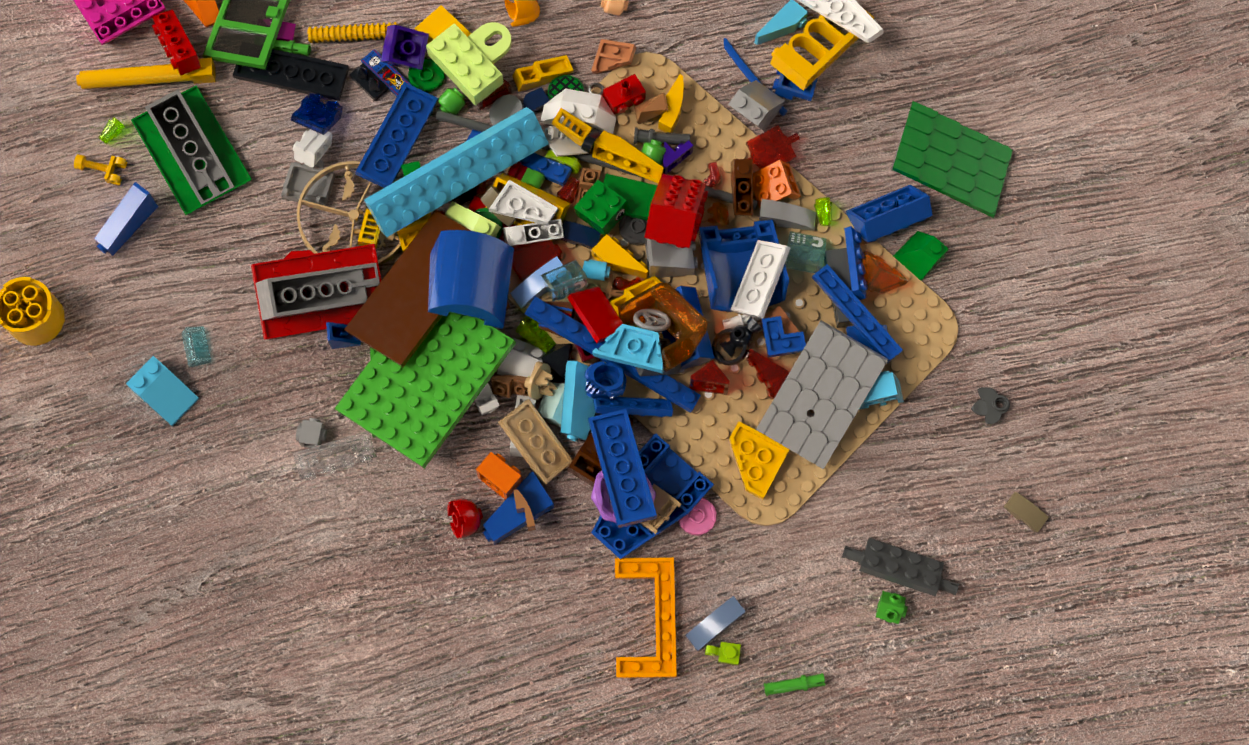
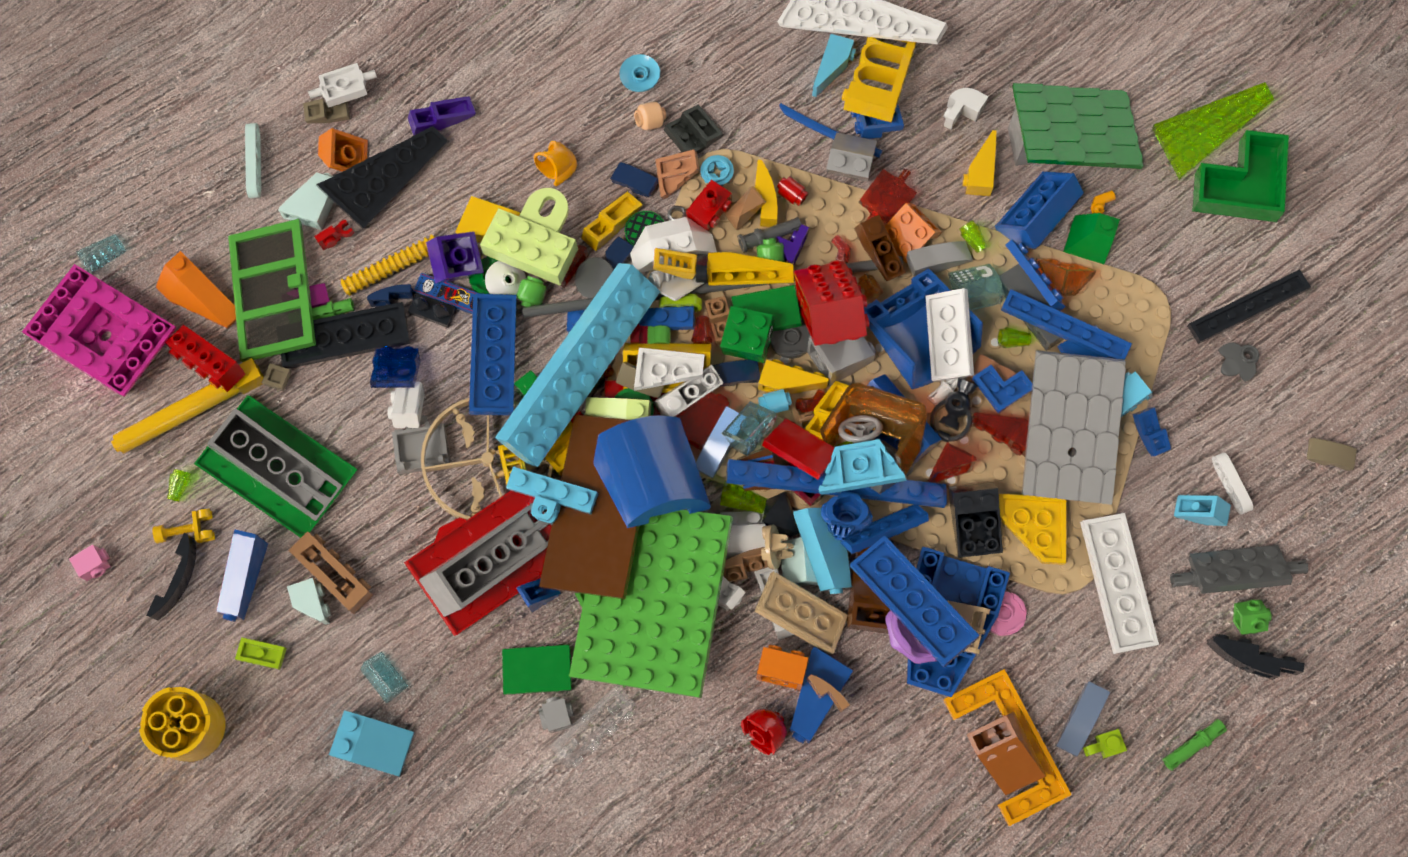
camera: 20 degrees left, 0 degrees up
(19, 160) = (90, 562): none -> bright pink brick
(78, 204) = (162, 605): none -> black slope
(112, 286) = (260, 653): none -> lime plate
(167, 261) = (308, 599): none -> light aqua slope
(205, 275) = (307, 546): none -> medium nougat brick
(224, 81) = (276, 377): none -> dark tan plate
(313, 393) = (536, 669): none -> green tile
(339, 55) = (386, 295): none -> dark blue slope
(385, 262) = (550, 494): none -> medium azure plate
(427, 81) = (496, 282): none -> white dish
(578, 49) = (635, 179): none -> dark blue slope
(641, 620) = (1007, 753): none -> dark orange slope
(643, 29) = (693, 130): none -> pearl dark grey slope
(653, 67) = (721, 163): none -> medium azure gear
(696, 111) = (792, 191): none -> red brick
(710, 433) = (976, 519): none -> black slope
(799, 533) = (1119, 583): none -> white plate
(813, 305) = (1013, 338): none -> clear neon green cone
(859, 160) = (980, 174): none -> yellow slope
(870, 633) = (1247, 657): none -> black slope
(873, 100) = (965, 102): none -> white brick
(888, 429) = (1152, 435): none -> blue slope
(897, 508) = (1203, 509): none -> medium azure slope
(932, 498) = (1232, 483): none -> white beam
(943, 228) = (1099, 201): none -> light orange arm
(1021, 366) = (1249, 306): none -> black plate
(1062, 208) = (1201, 131): none -> clear neon green wing
(1070, 273) = (1252, 188): none -> green piece

